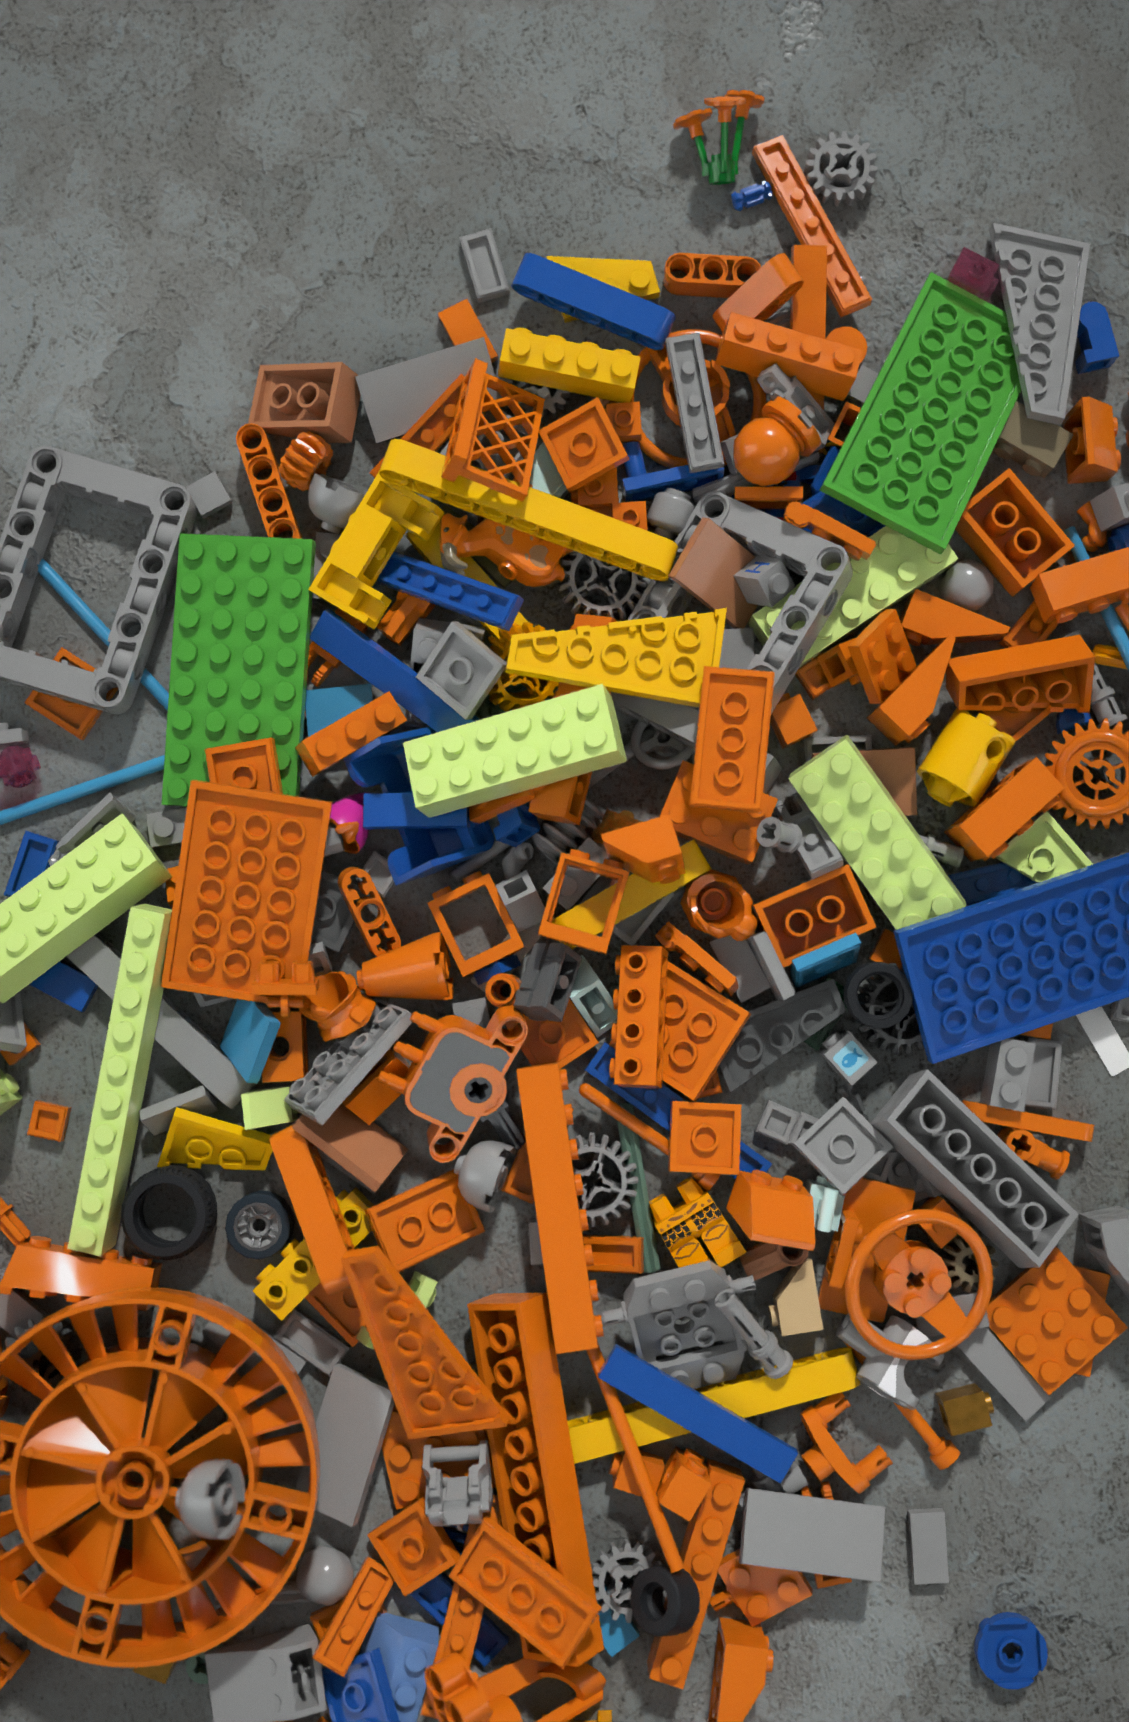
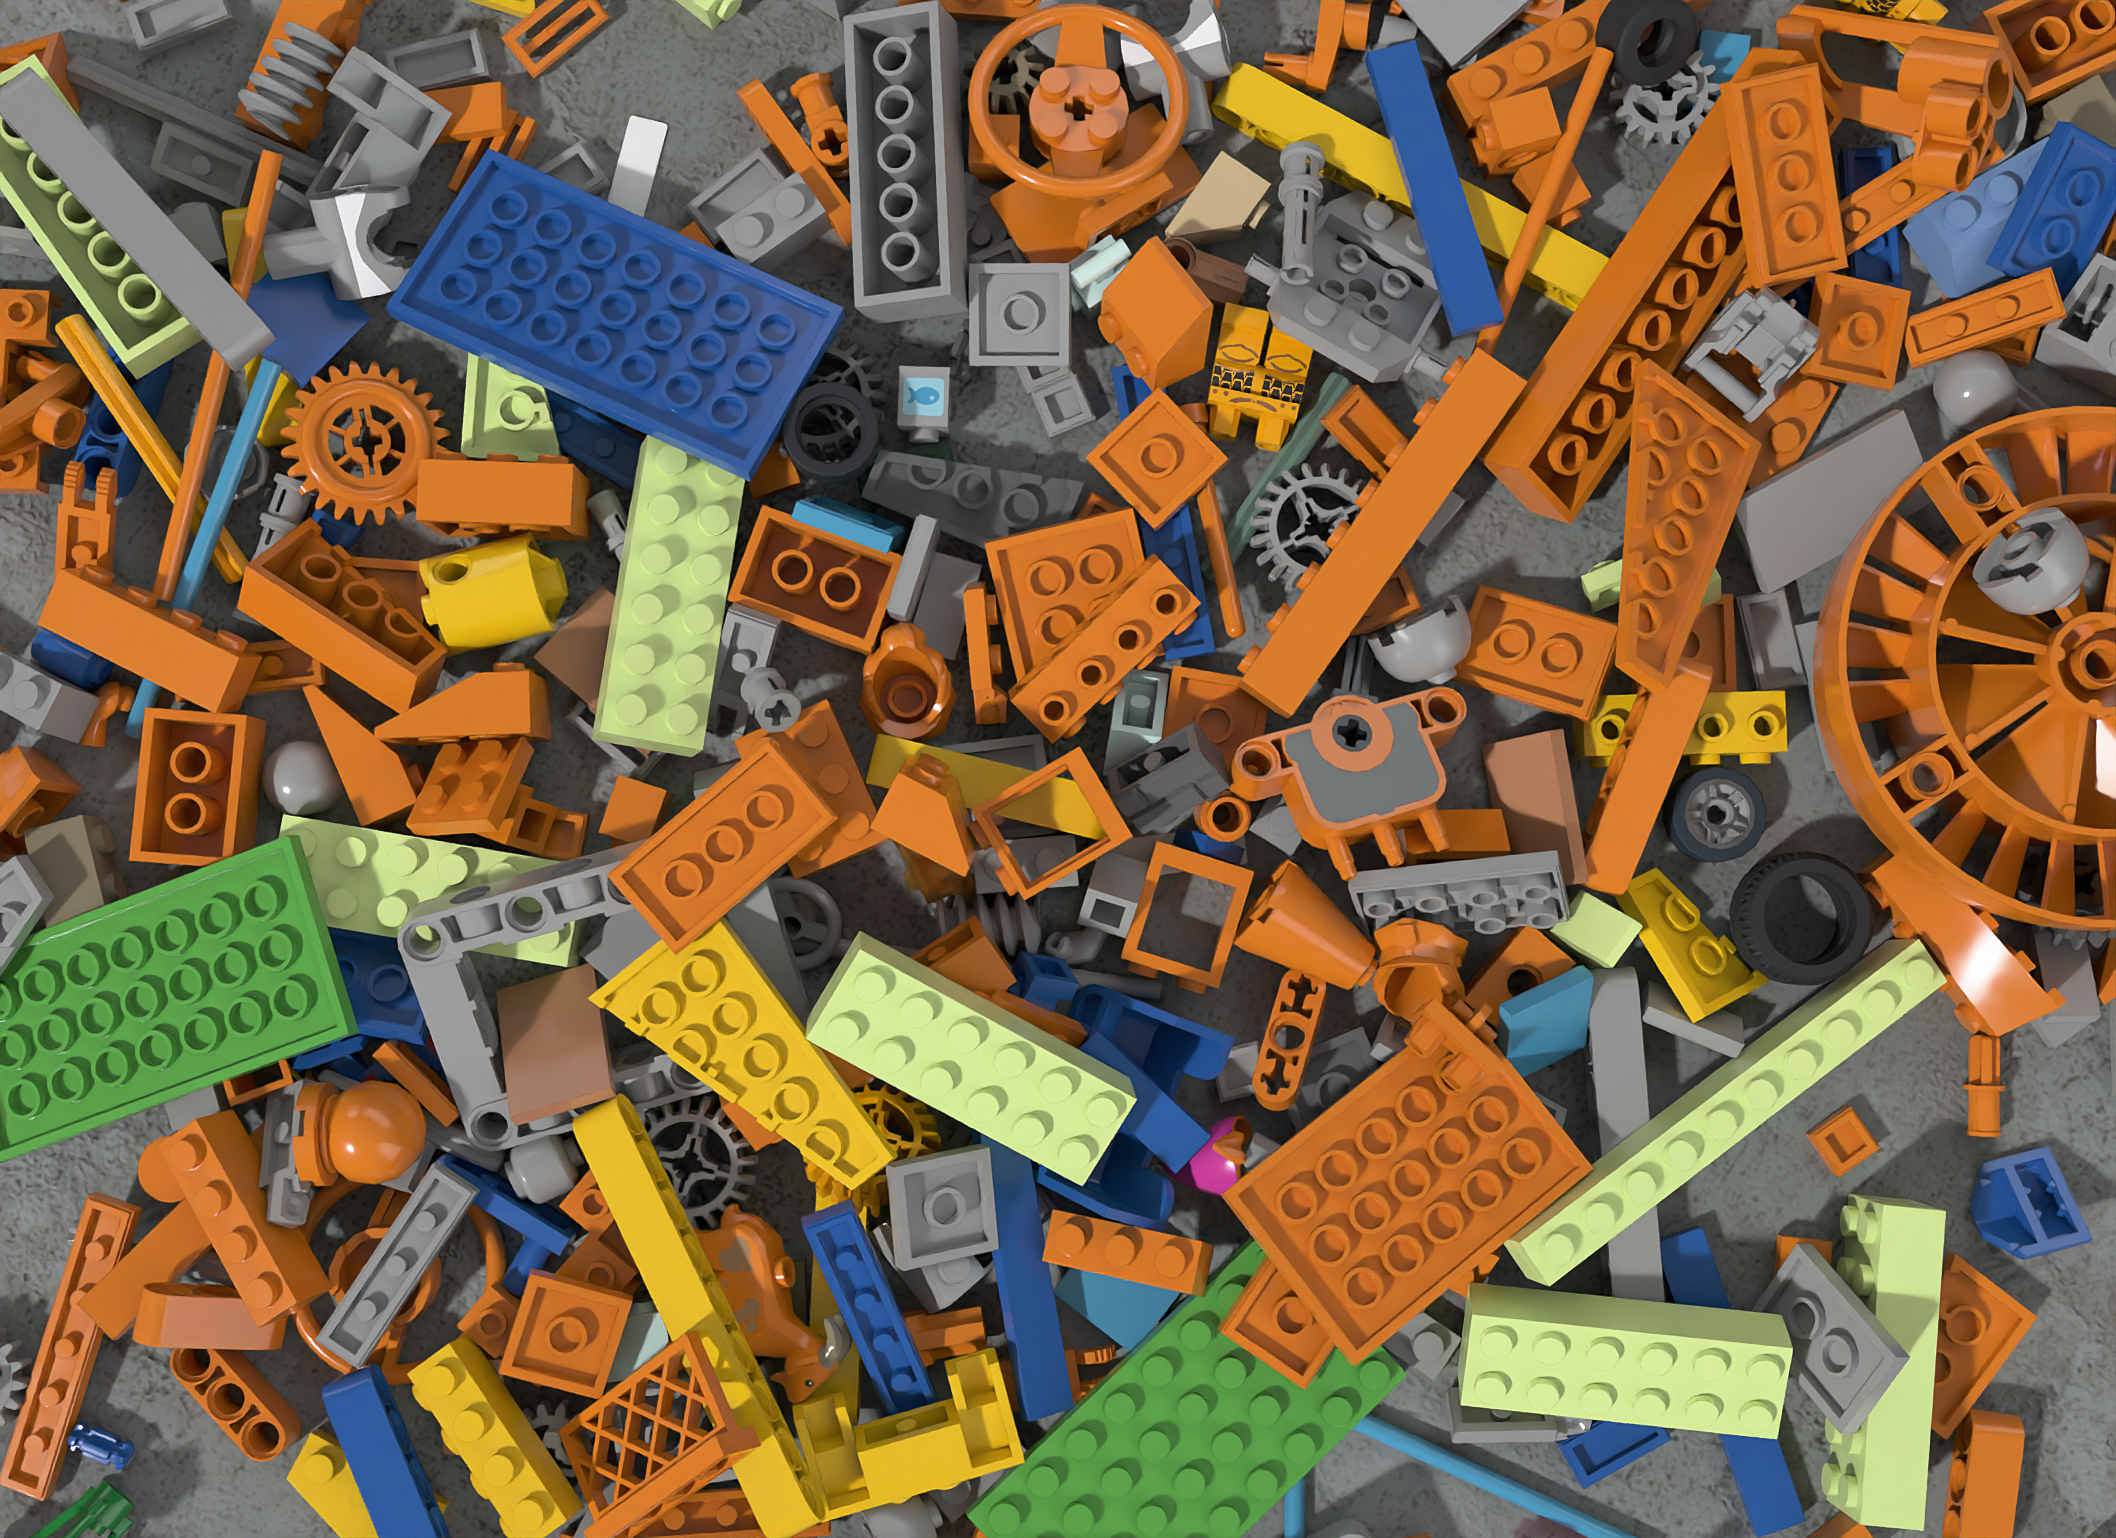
camera: 135 degrees left, 0 degrees up
(764, 581) = (516, 991): light grey brick -> none
(820, 524) = (392, 978): orange hinge -> none

